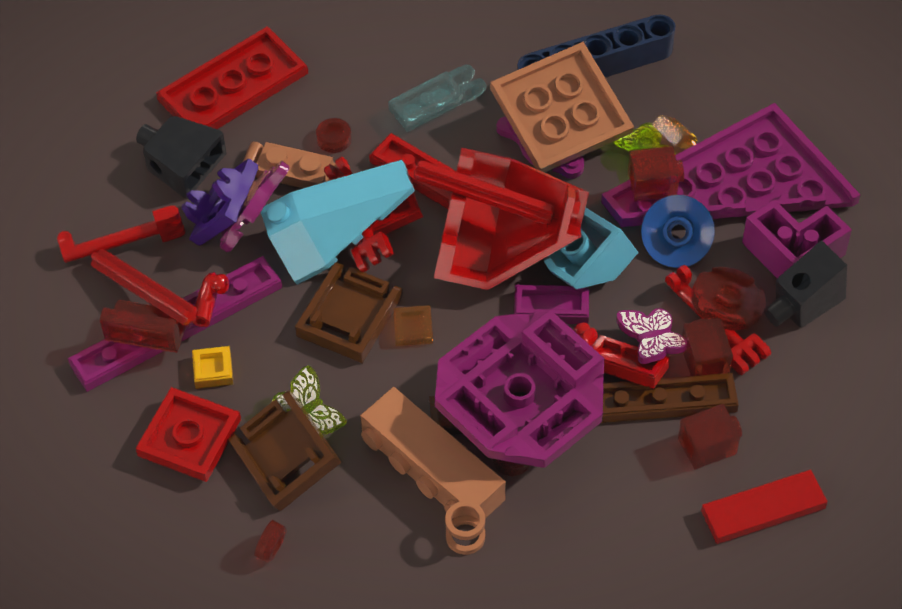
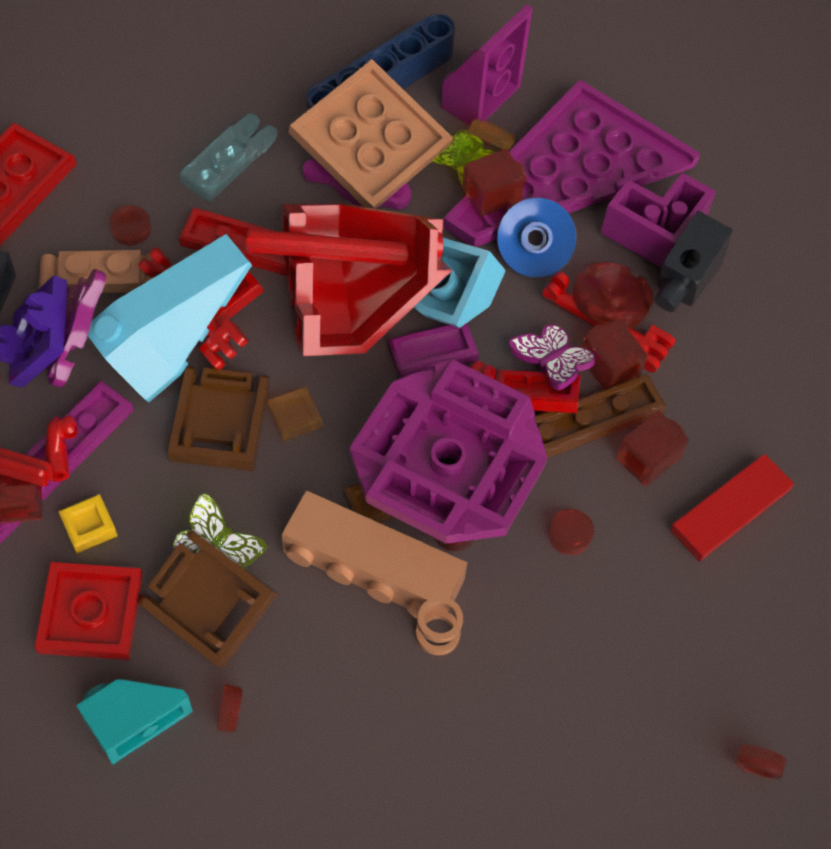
camera: 25 degrees left, 5 degrees up
(192, 522) = (131, 714): none -> teal slope
(611, 486) = (571, 532): none -> clear red tile
(689, 76) = (489, 73): none -> magenta slope

